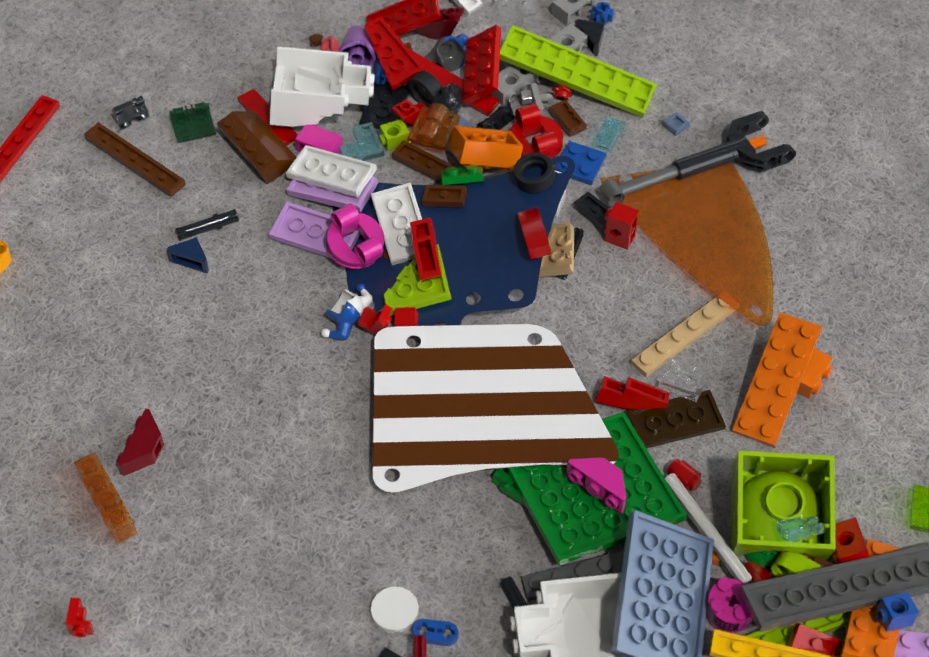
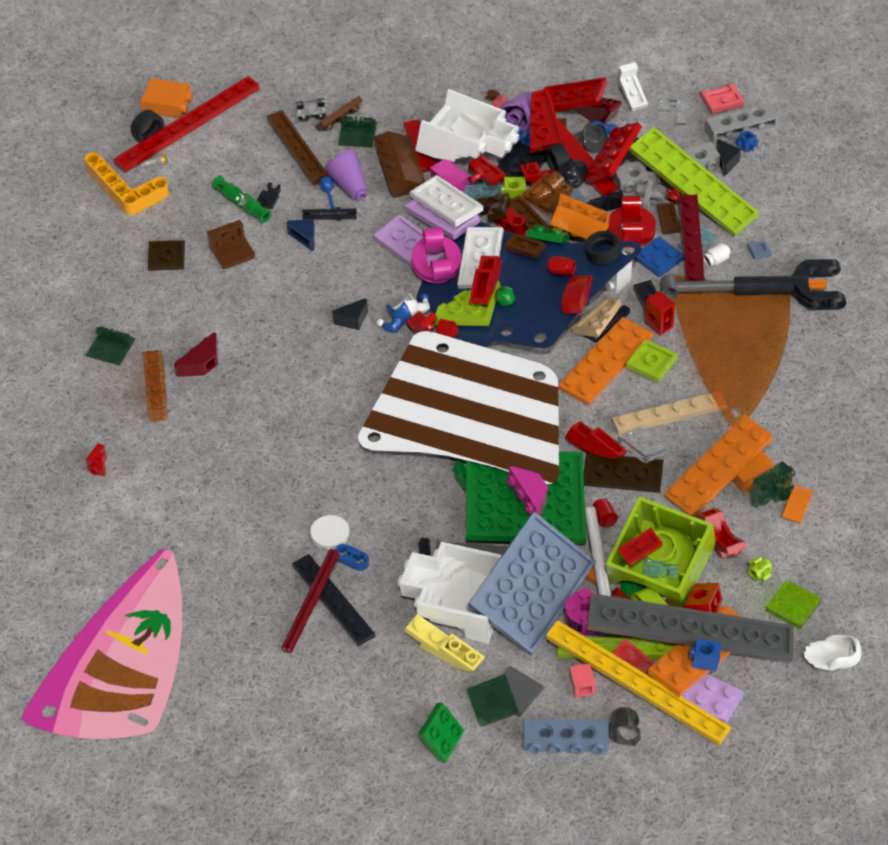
camera: 25 degrees right, 5 degrees down
(27, 465) = (110, 345): none -> clear green hinge
(42, 331) = (166, 255): none -> dark brown tile
(89, 234) = (241, 198): none -> green piece
(113, 296) = (230, 244): none -> reddish brown bracket
(129, 227) = (270, 197): none -> black plate
(163, 109) = (327, 122): none -> reddish brown plate
(188, 192) = (326, 185): none -> blue hinge
(209, 174) = (348, 174): none -> medium lavender cone
(290, 335) = (351, 314): none -> black slope
(356, 125) = (485, 170): none -> red plate
(388, 159) = (495, 206): none -> dark brown plate
(409, 171) = (512, 223): none -> red piece
(454, 259) = (505, 296): none -> green piece
(499, 207) = (561, 266): none -> red brick
(588, 297) = (604, 361): none -> orange plate
(607, 133) = (691, 238): none -> dark red plate
(637, 281) = (651, 361): none -> lime plate
(638, 142) = (716, 254): none -> white brick
(769, 511) = (640, 547): none -> red plate
(805, 442) = (725, 542): none -> red arch
(846, 381) = (773, 485): none -> clear green plate
(873, 392) = (797, 504): none -> orange slope
(880, 482) = (759, 568): none -> lime gear

